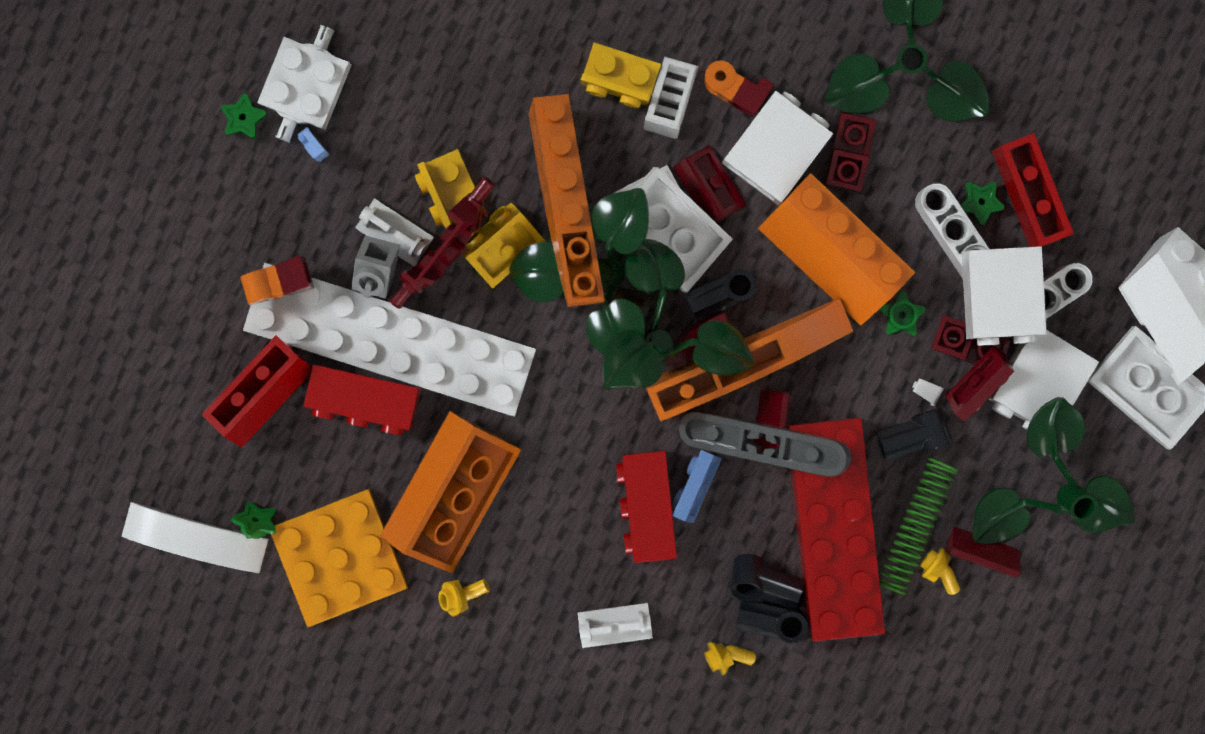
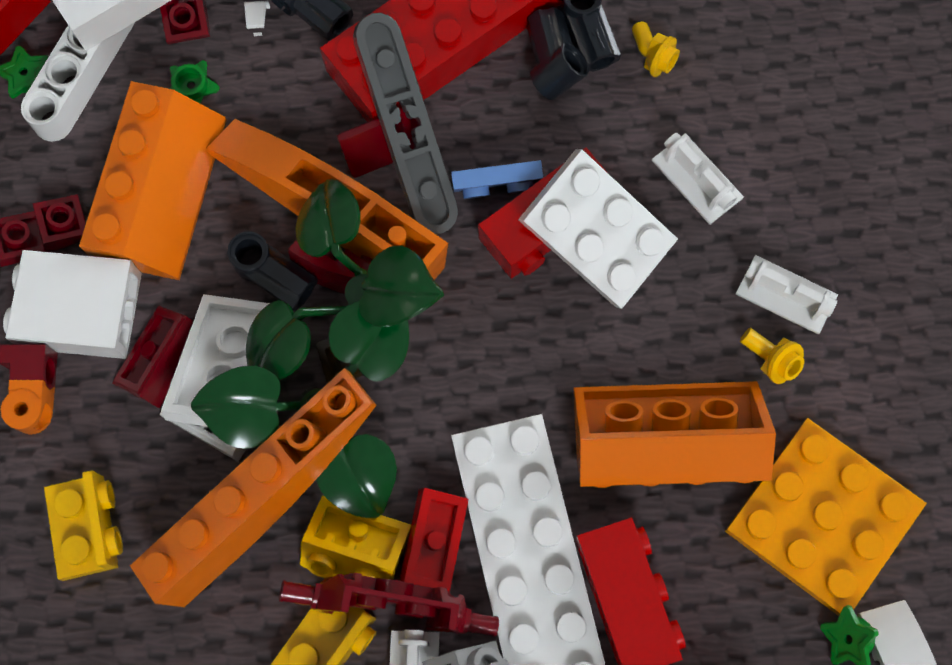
camera: 120 degrees left, 15 degrees down
(473, 296) = (434, 539): none -> red plate
(497, 631) = (787, 294): none -> white hinge
(613, 529) = (598, 228): none -> white plate
(660, 124) = (108, 445): white slope -> none

